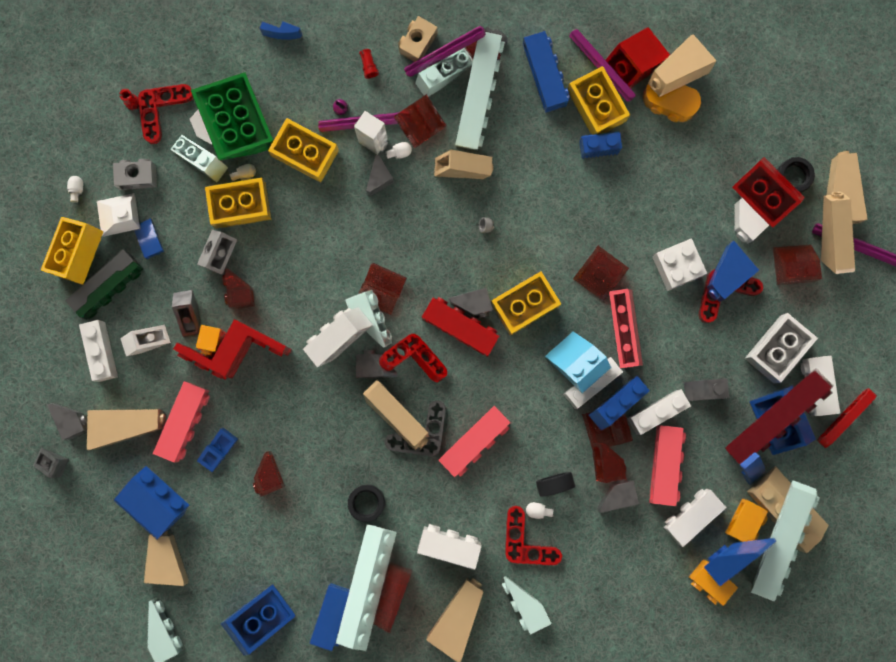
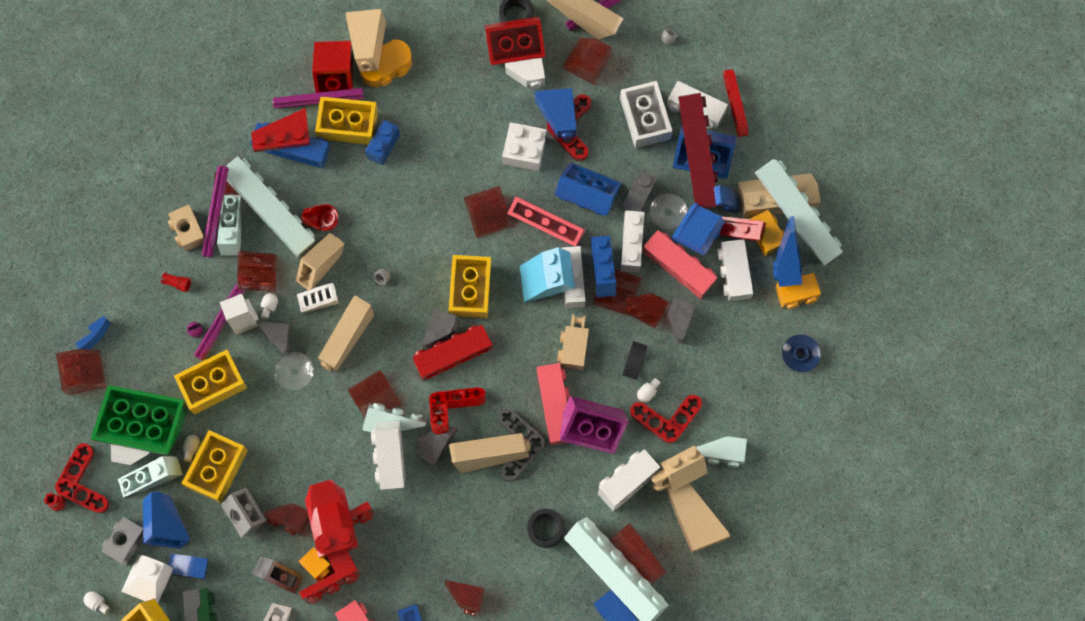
camera: 55 degrees left, 10 degrees down
(167, 194) = (162, 522): none -> blue slope
(245, 42) = (80, 371): none -> clear red slope
(249, 327) = (330, 519): none -> red slope
(356, 201) = (291, 362): none -> clear dish
(415, 230) = (346, 334): none -> tan slope
(444, 195) = (318, 305): none -> white slope
(476, 485) = (592, 425): none -> magenta slope
(485, 586) = (680, 470): none -> tan brick
(501, 140) = (321, 217): none -> red hair
(536, 422) = (574, 344): none -> tan brick
(549, 58) = (283, 133): none -> red wing
(669, 620) = (803, 344): none -> dark blue dish
(679, 343) = (587, 189): none -> blue slope
(708, 463) = (698, 229): none -> blue slope
(717, 425) = (671, 203): none -> clear dish
(732, 495) = (743, 229): none -> plate
(867, 320) = (668, 36): none -> light grey hinge

